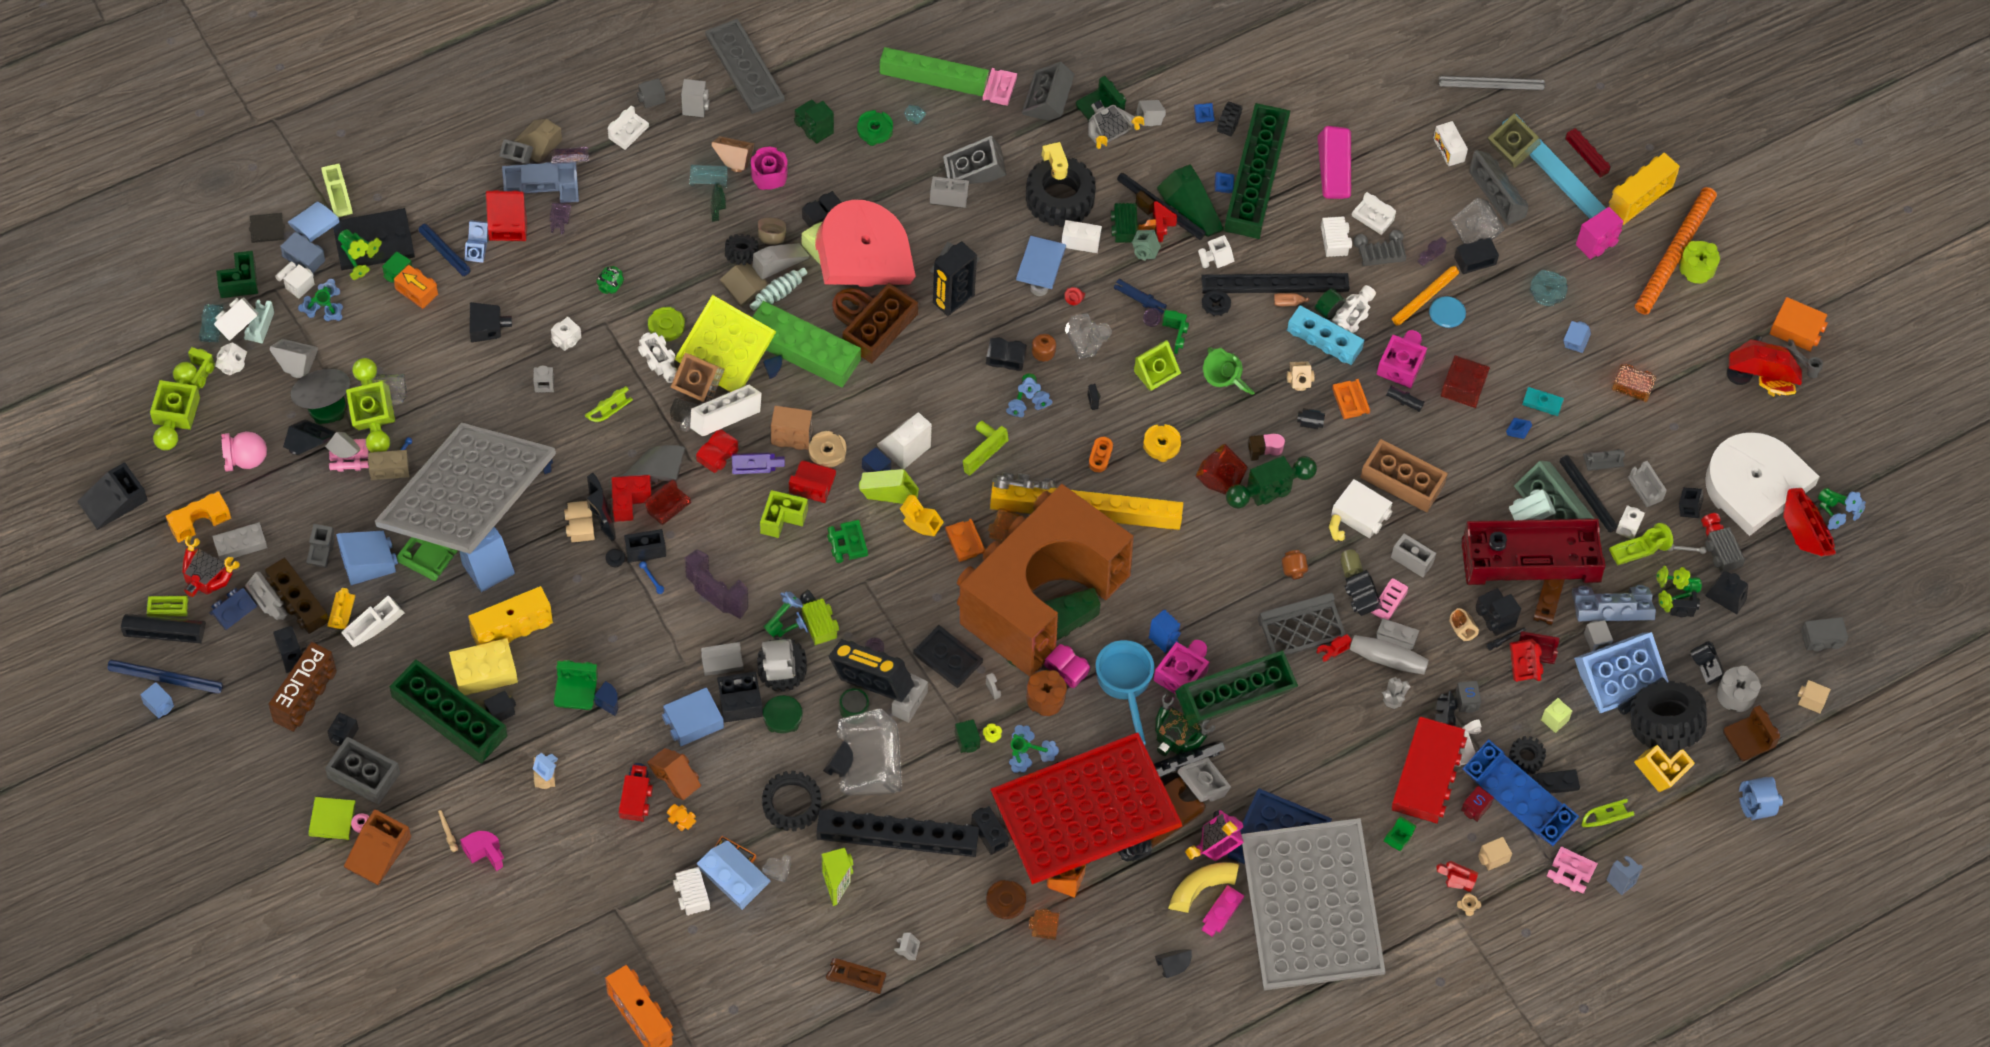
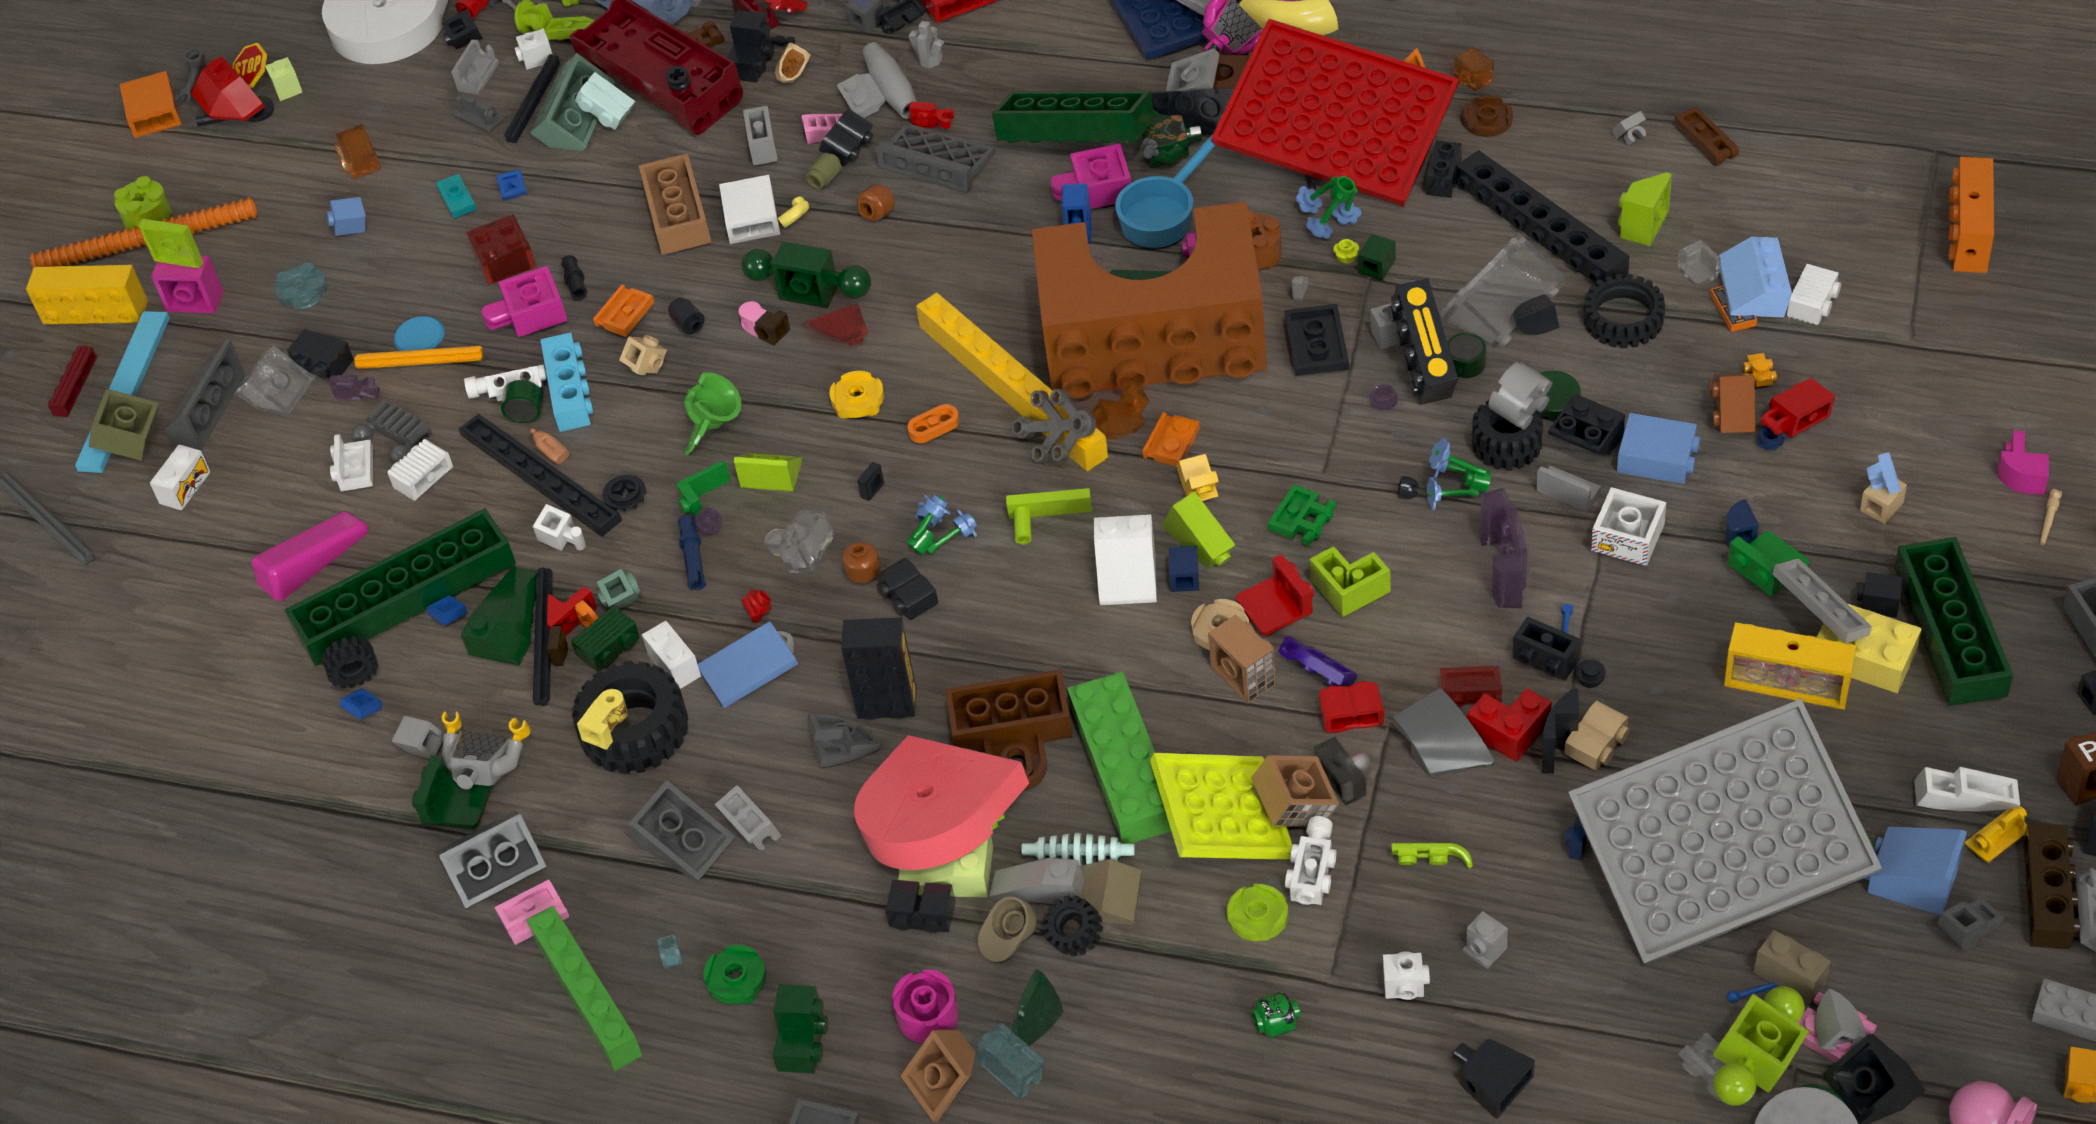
camera: 125 degrees left, 10 degrees down
(517, 653) = (1822, 600): none -> light grey plate
(664, 649) = (1628, 526): none -> white brick
(725, 410) = (1303, 721): white brick -> none
(819, 621) = (1416, 451): lime brick -> none
(1610, 213) = (171, 243): none -> lime tile
(1745, 393) = (283, 79): none -> yellowish green brick

